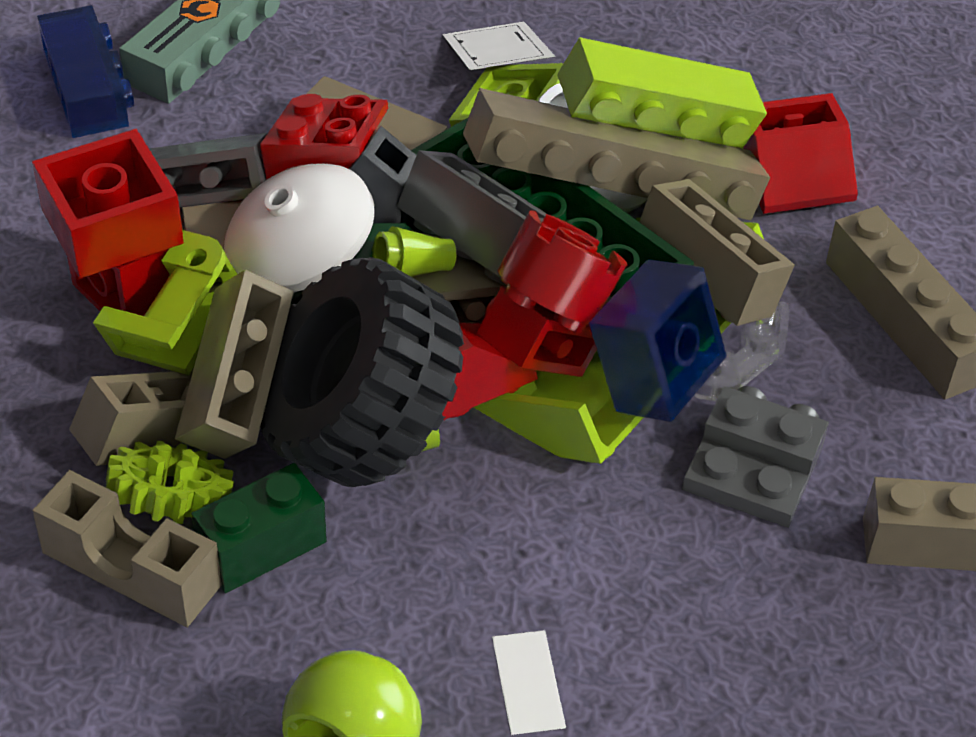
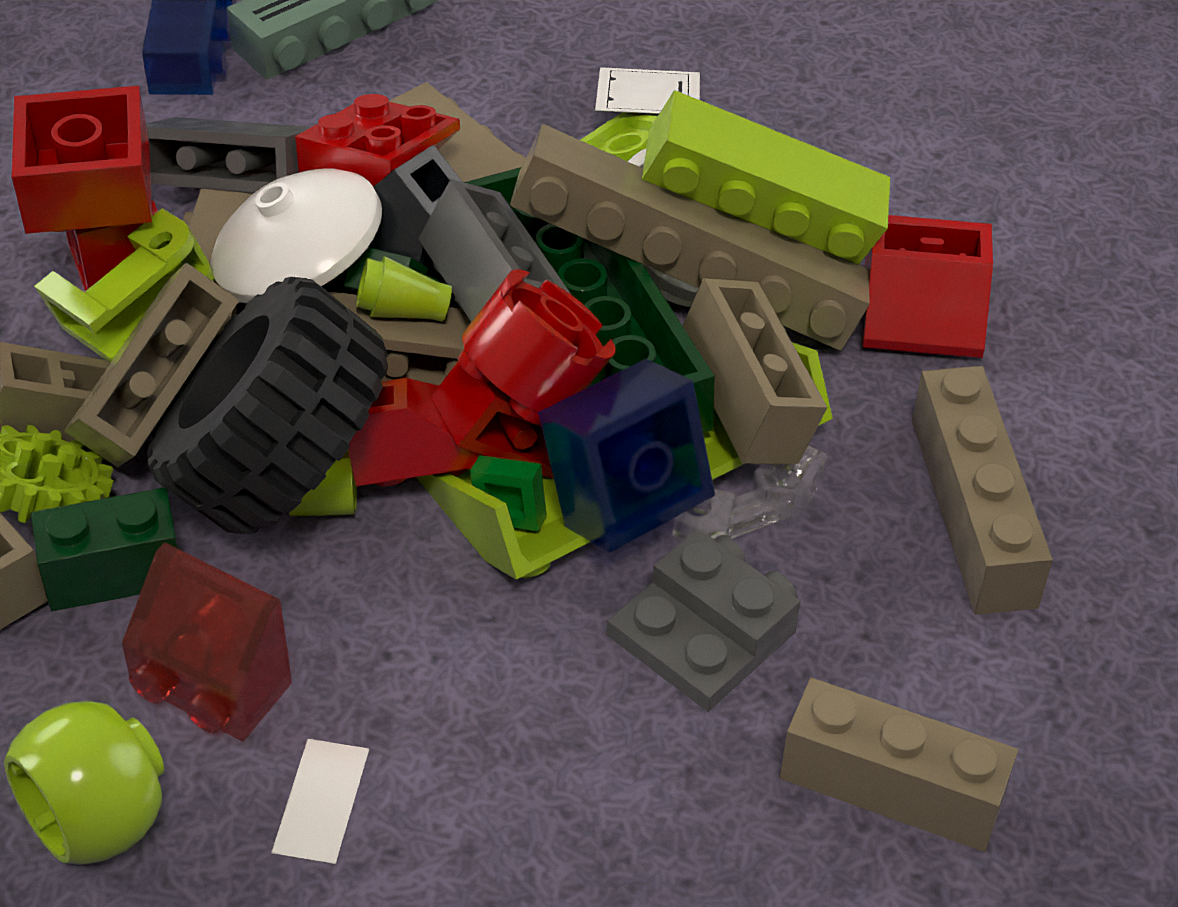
camera: 20 degrees right, 0 degrees up
(390, 580) = (207, 644): none -> clear red slope
(566, 384) = (517, 485): none -> green tile

